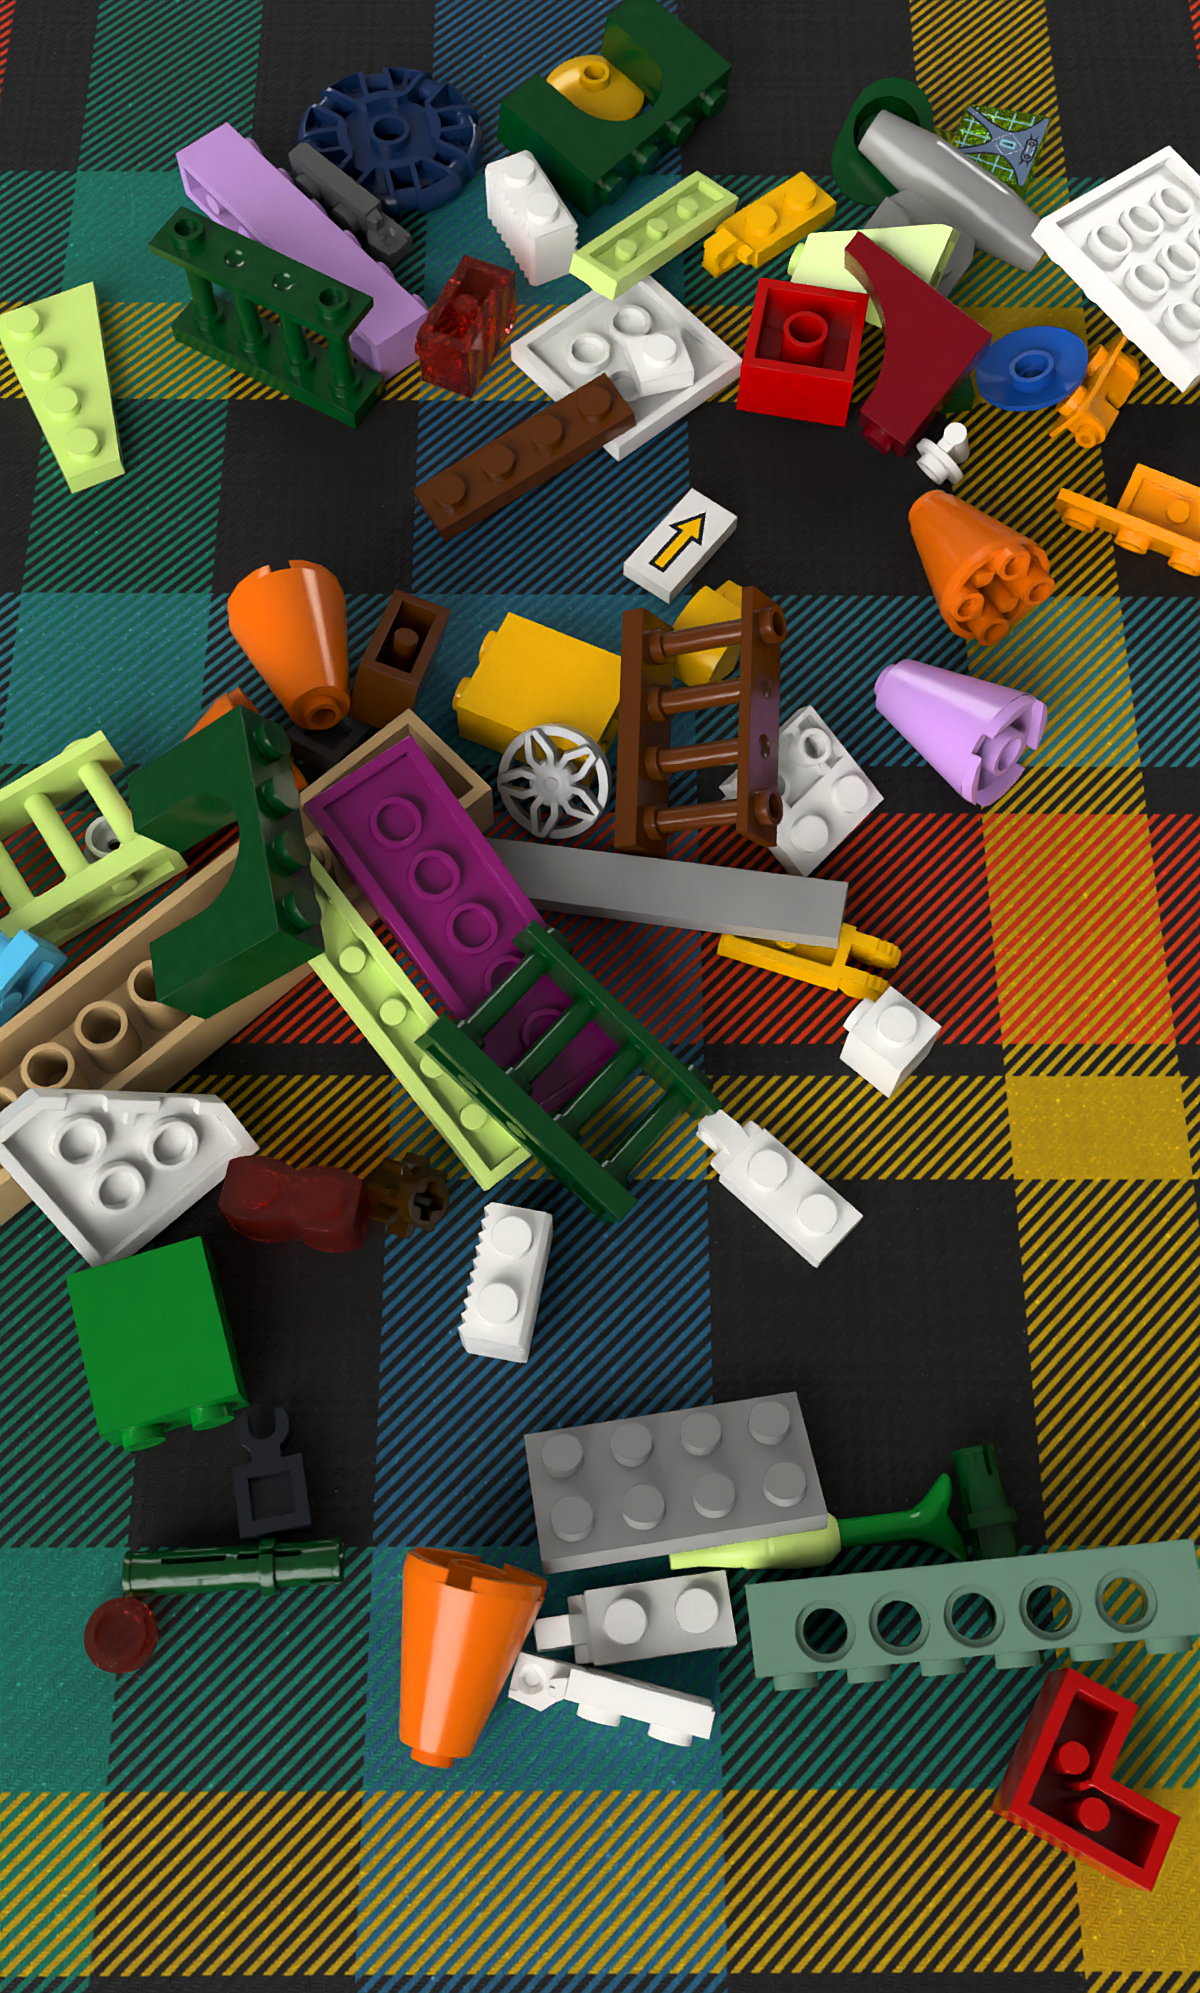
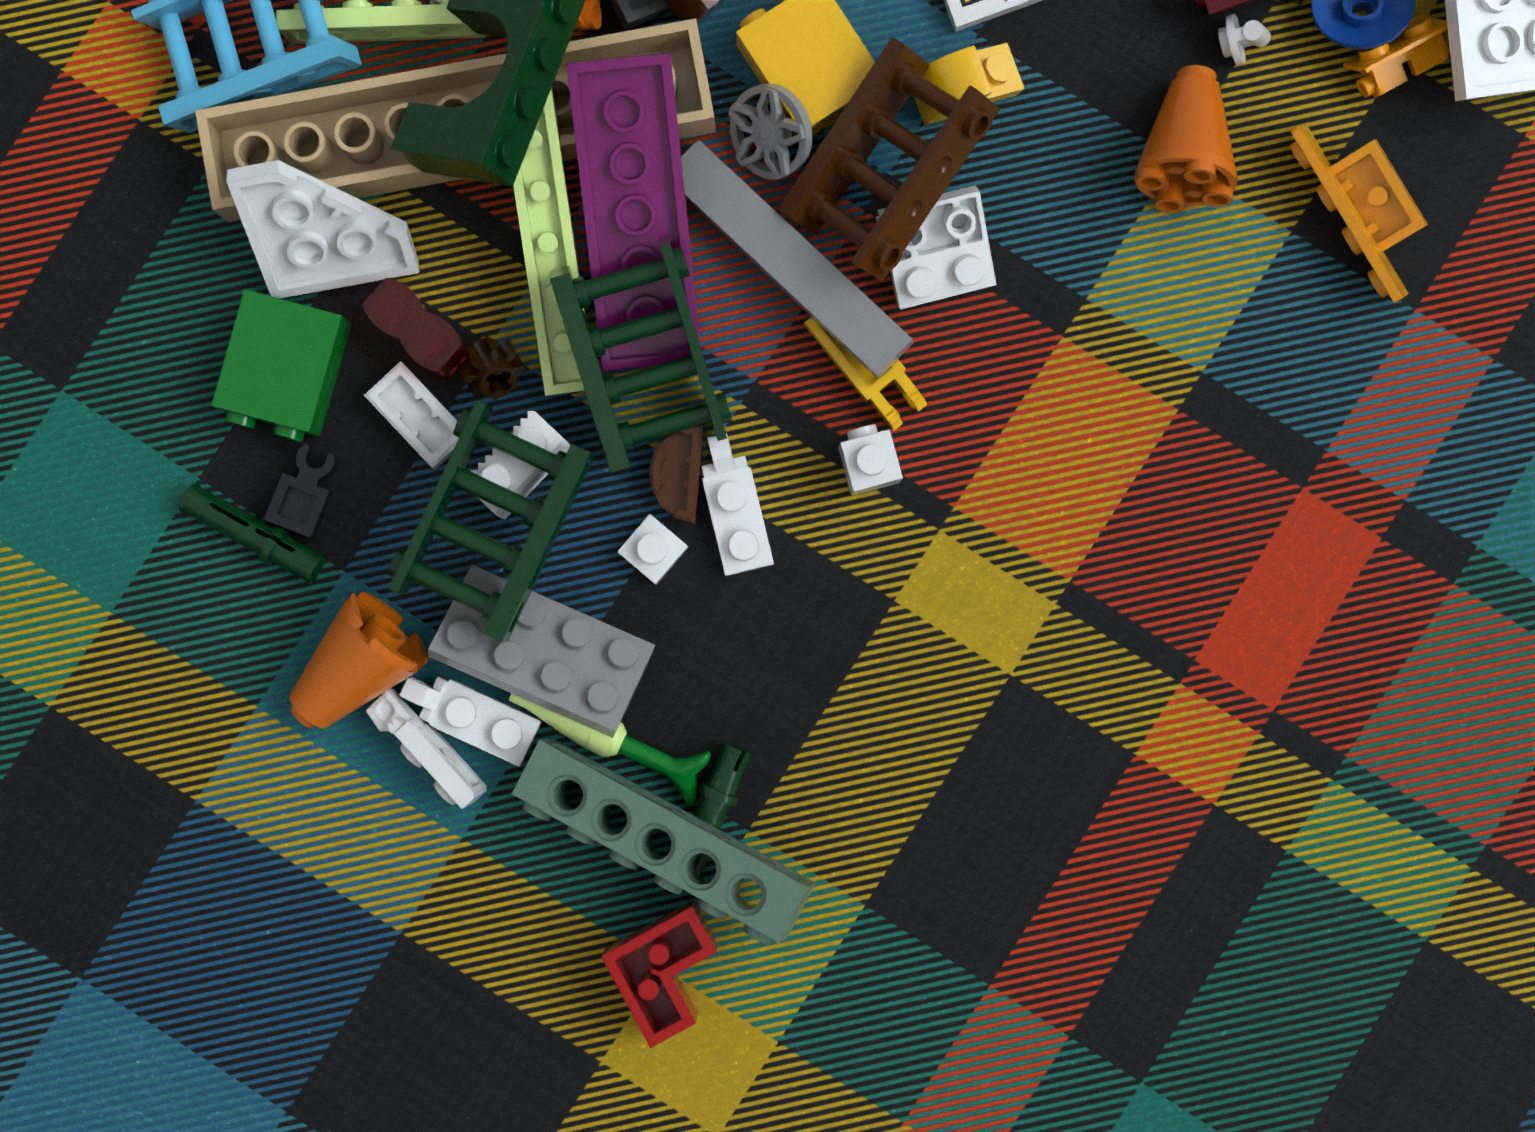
camera: 35 degrees right, 20 degrees up
(121, 1635) = (165, 530): clear red plate -> none
(354, 1303) = (415, 414): none -> white plate
(589, 1378) = (520, 562): none -> dark green fence
(690, 1186) = (677, 472): none -> reddish brown plate
(718, 1287) = (653, 549): none -> white plate
(962, 725) = (1083, 267): lavender cone -> none

